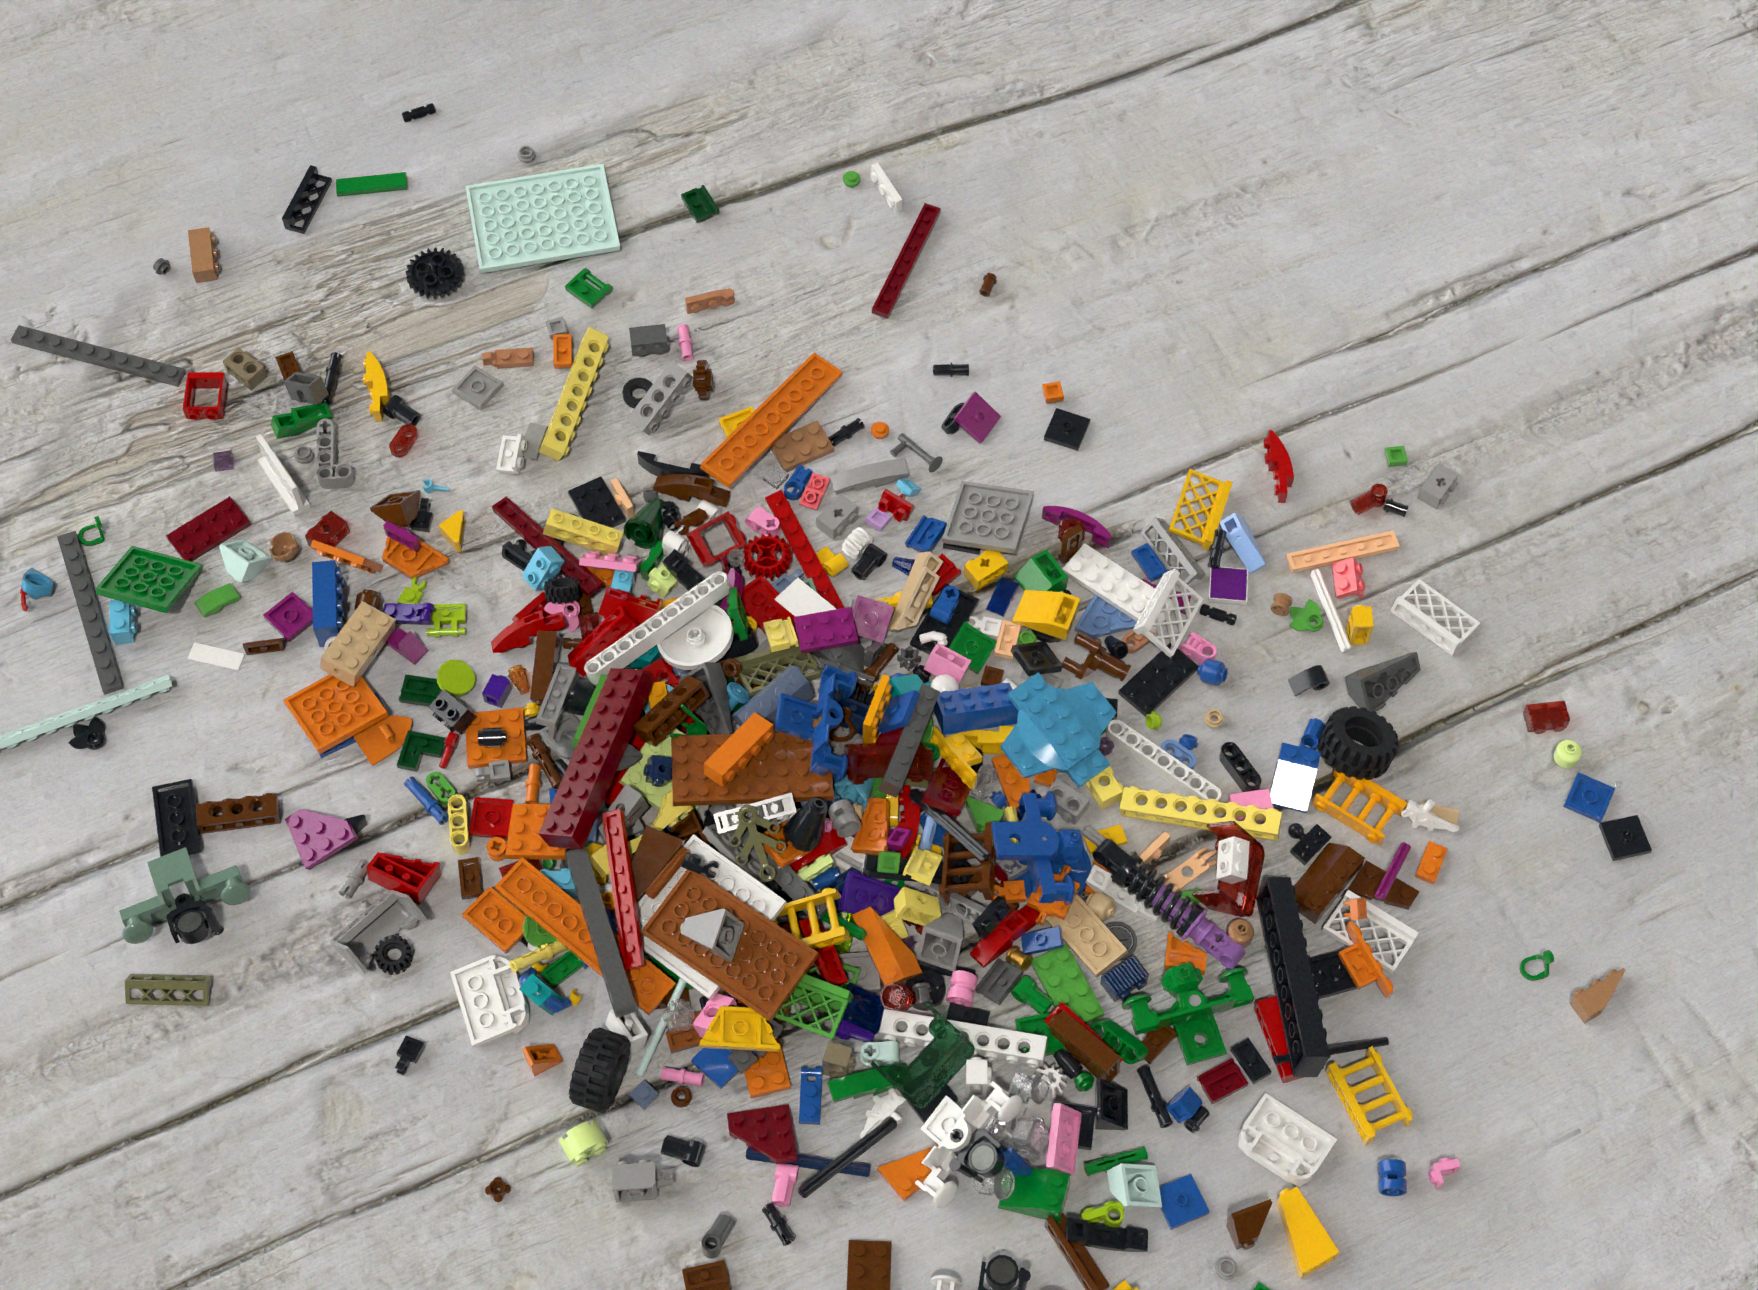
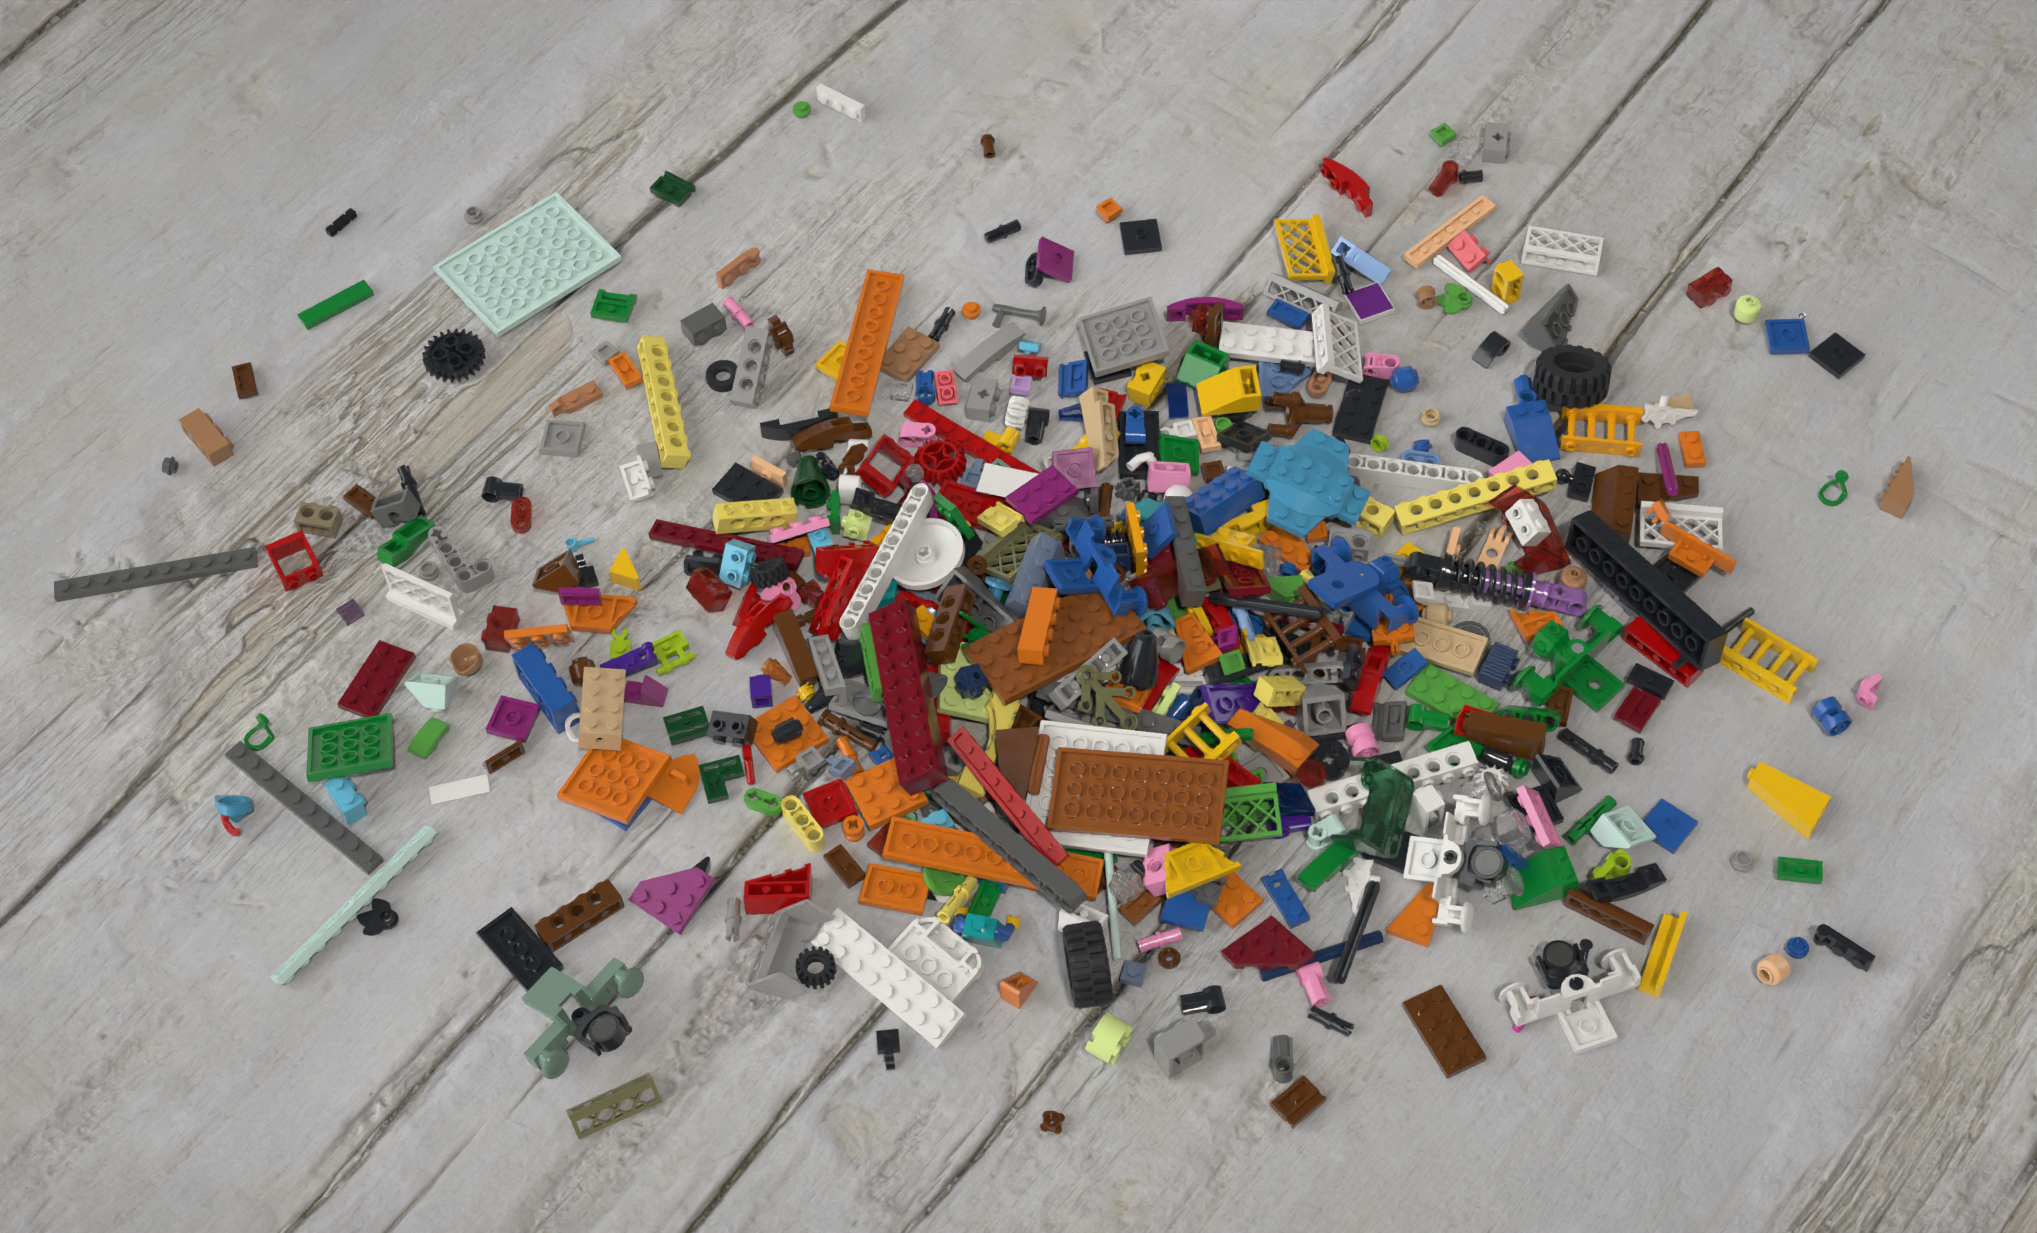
camera: 25 degrees left, 5 degrees down
(261, 219) = (244, 380): none -> reddish brown plate
(298, 203) = (273, 346): black fence -> none
(376, 385) = (461, 476): yellow slope -> none
(431, 806) = (765, 820): blue pin -> none
(444, 995) = (889, 979): none -> white plate
(455, 677) = (713, 696): lime tile -> none
(508, 580) = (708, 590): none -> clear red brick
(518, 790) = (841, 767): none -> sand blue plate
(631, 803) = (960, 717): light grey torso -> none
(695, 863) = (1062, 740): black plate -> none
(714, 931) = (1121, 790): light grey slope -> none
(838, 1060) = (1295, 853): dark tan brick -> none
(906, 260) = (900, 157): dark red plate -> none
(922, 995) = (1333, 762): dark grey bush -> none
(1012, 891) = (1356, 634): orange plate -> none
(1015, 956) = (1395, 693): pearl gold bush -> none
(1116, 647) = (1310, 394): black cone -> none
(1118, 614) = (1292, 366): none -> black pin
(1184, 1105) = (1618, 744): blue panel -> none
(1218, 614) = (1376, 330): black axle -> none
(1247, 1224) = (1740, 813): reddish brown slope -> none
(1284, 1141) = (1722, 732): white plate -> none

